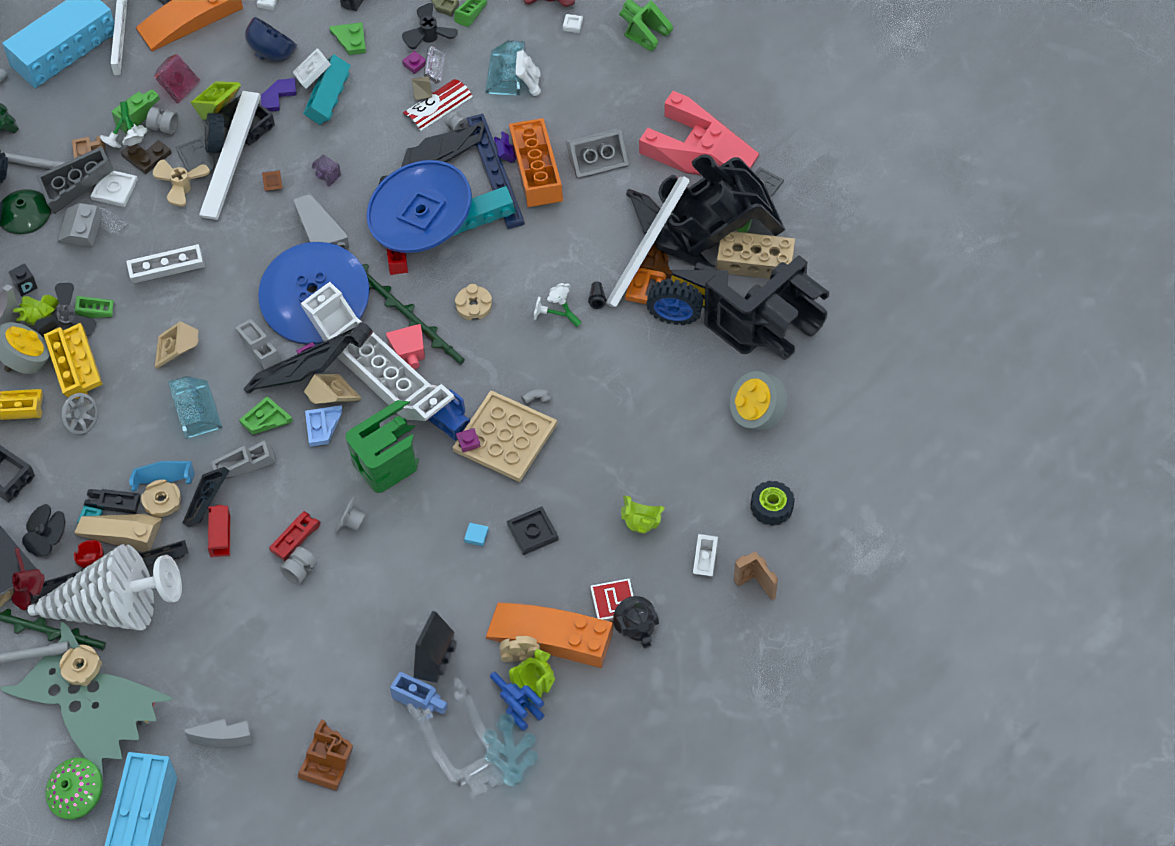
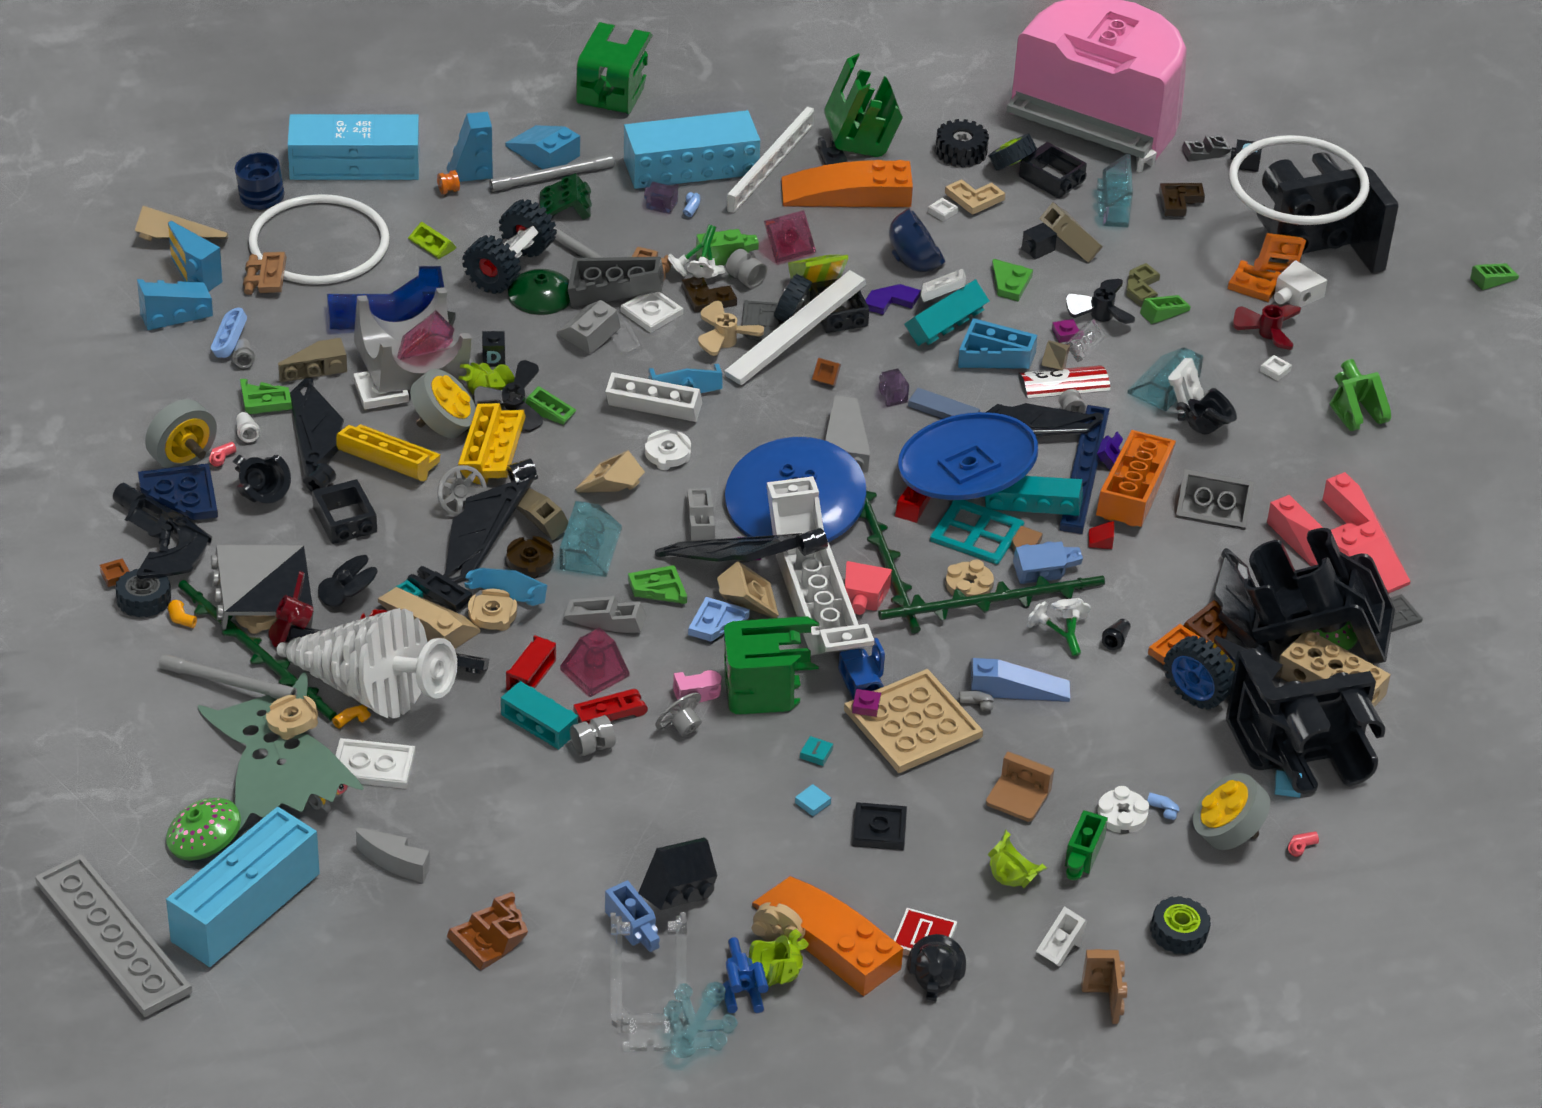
camera: 25 degrees right, 15 degrees down
(61, 88) = (661, 197): none -> clear purple brick
(88, 82) = (693, 201): none -> light blue arm
(109, 429) = (484, 519): none -> black wing
(115, 637) = (349, 714): none -> light orange arm
(144, 400) = (543, 513): none -> dark tan slope
(158, 666) = (377, 762): none -> white tile
(163, 449) = (530, 566): none -> dark brown plate
(180, 237) = (701, 379): none -> dark azure piece
(204, 309) = (678, 446): none -> white plate
(204, 494) = (538, 626): black wing -> none
(249, 567) = (538, 714): none -> teal brick
(261, 505) = (595, 663): none -> clear pink slope
(343, 487) = (706, 684): none -> bright pink leg
(369, 168) = (938, 405): none -> sand blue tile
(378, 101) = (996, 347): none -> dark azure wedge
(454, 494) = (816, 751): none -> teal tile
(455, 276) = (976, 531): none -> teal window
(492, 252) = (1026, 536): none -> medium nougat tile
(494, 315) = (983, 601): none -> dark green plant
(515, 262) = (1044, 560): none -> medium blue hinge
(540, 220) = (1102, 536): none -> red slope
(548, 369) = (1016, 682): none -> medium blue wedge
(553, 85) = (1208, 413): none -> black helmet
(608, 452) = (1021, 787): none -> medium nougat bracket
(647, 242) = (1207, 597): white tile -> none
(677, 475) = (1085, 844): none -> green brick
(687, 424) = (1123, 798): none -> white plate
(706, 412) = (1166, 803): none -> light blue arm
(771, 358) = (1283, 786): none -> medium azure tile
(807, 397) = (1299, 842): none -> coral arm

